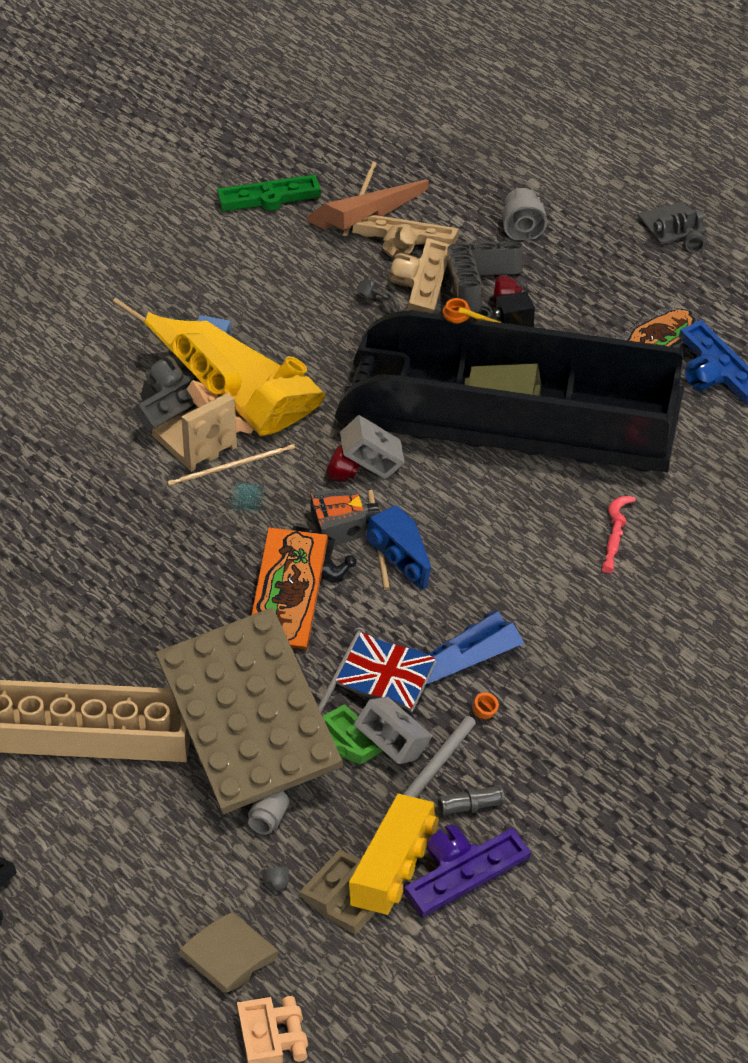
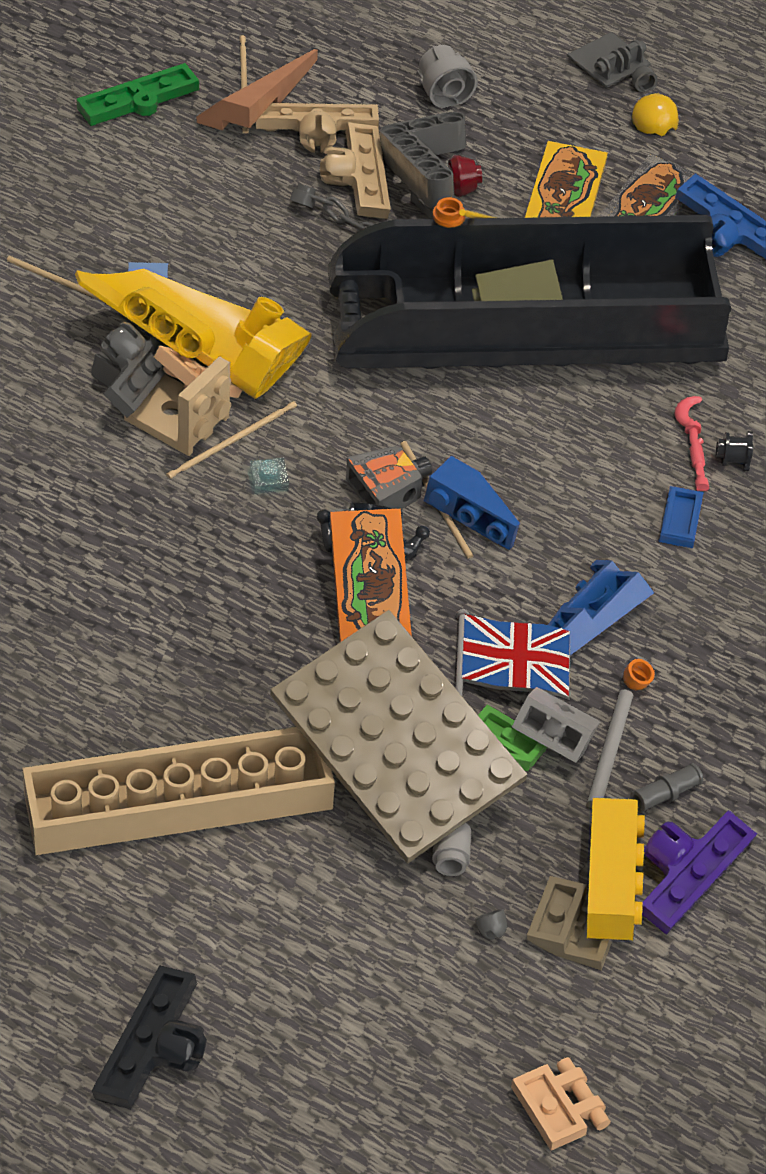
camera: 20 degrees left, 5 degrees up
(228, 952) = (475, 1022): dark tan slope -> none
(341, 467) = (364, 417): dark red cone -> none
(372, 447) = (395, 391): light grey brick -> none
(514, 309) = (483, 194): black brick -> none
(578, 589) = (681, 517): none -> blue tile
(596, 309) = (567, 182): none -> tile
(646, 544) = (735, 449): none -> black brick
(692, 270) = (655, 114): none -> yellow hair

